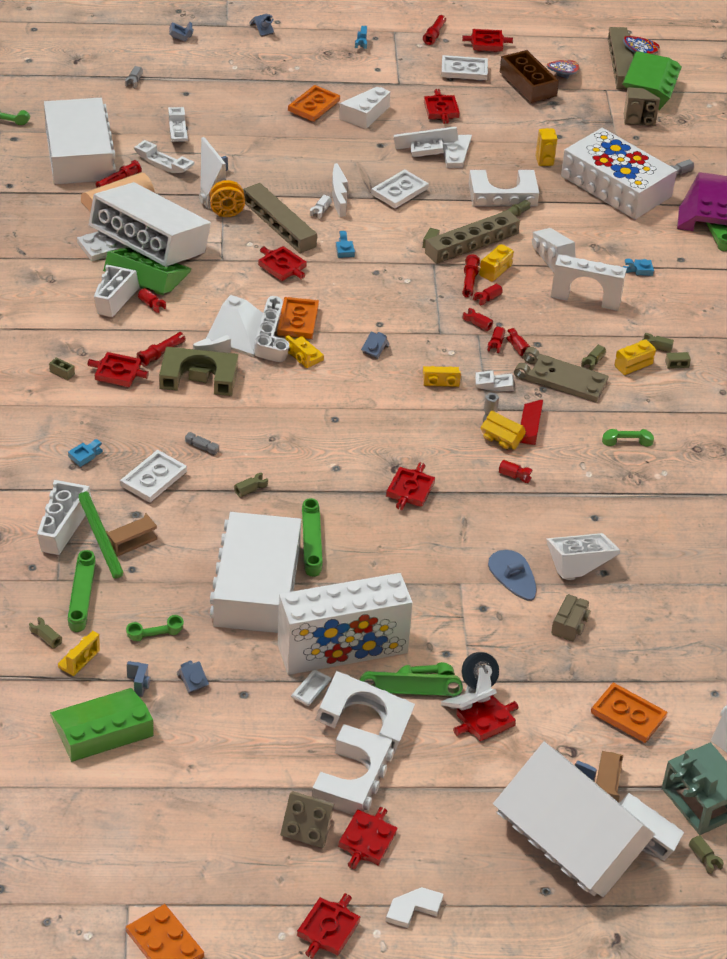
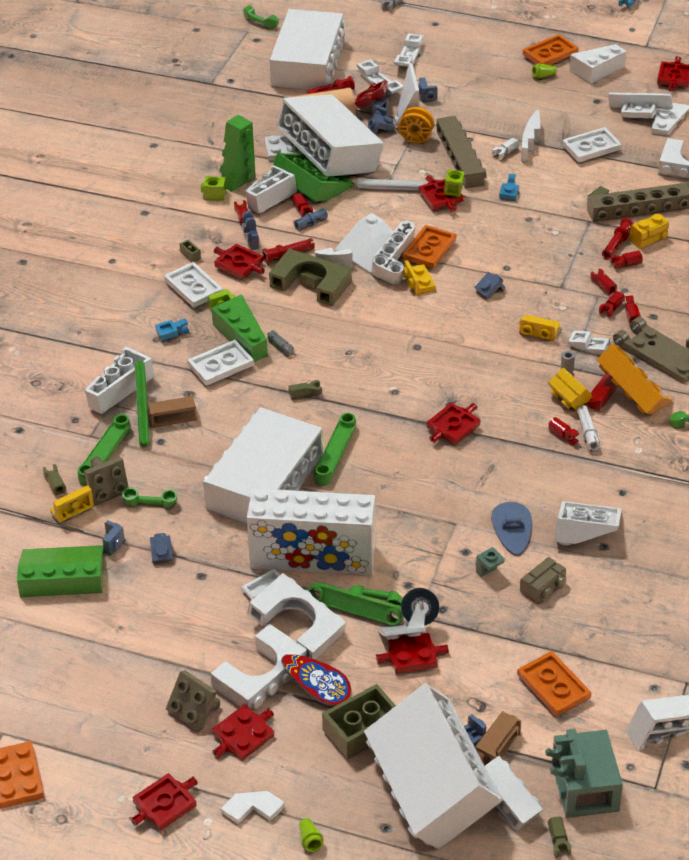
camera: 25 degrees right, 0 degrees up
(54, 299) = (214, 188): none -> lime brick
(70, 259) = (238, 153): none -> bright green wedge
(84, 402) = (192, 284): none -> white plate
(95, 319) = (240, 209): none -> red bar
(106, 618) = (106, 479): none -> dark tan plate
(114, 333) = (249, 228): none -> sand blue hinge
(123, 412) = (219, 297): none -> lime bracket
(153, 432) = (239, 324): none -> bright green wedge
(166, 175) = (375, 91): none -> red plate
(167, 312) = (310, 219): none -> sand blue pin
(180, 192) = (380, 107): none -> sand blue bracket
(189, 202) = (382, 122): none -> sand blue bracket
(226, 263) = (389, 184): none -> white axle
(294, 250) = (453, 183): none -> lime brick
(315, 124) = (542, 70): none -> lime cone
(415, 766) = (317, 679): none -> shield
(473, 795) = (350, 719): none -> olive brick
(485, 919) = (311, 837): none -> lime cone
(515, 610) = (488, 561): none -> sand green bracket
(540, 468) = (589, 431): none -> white axle
(557, 407) = (632, 380): none -> light orange wedge

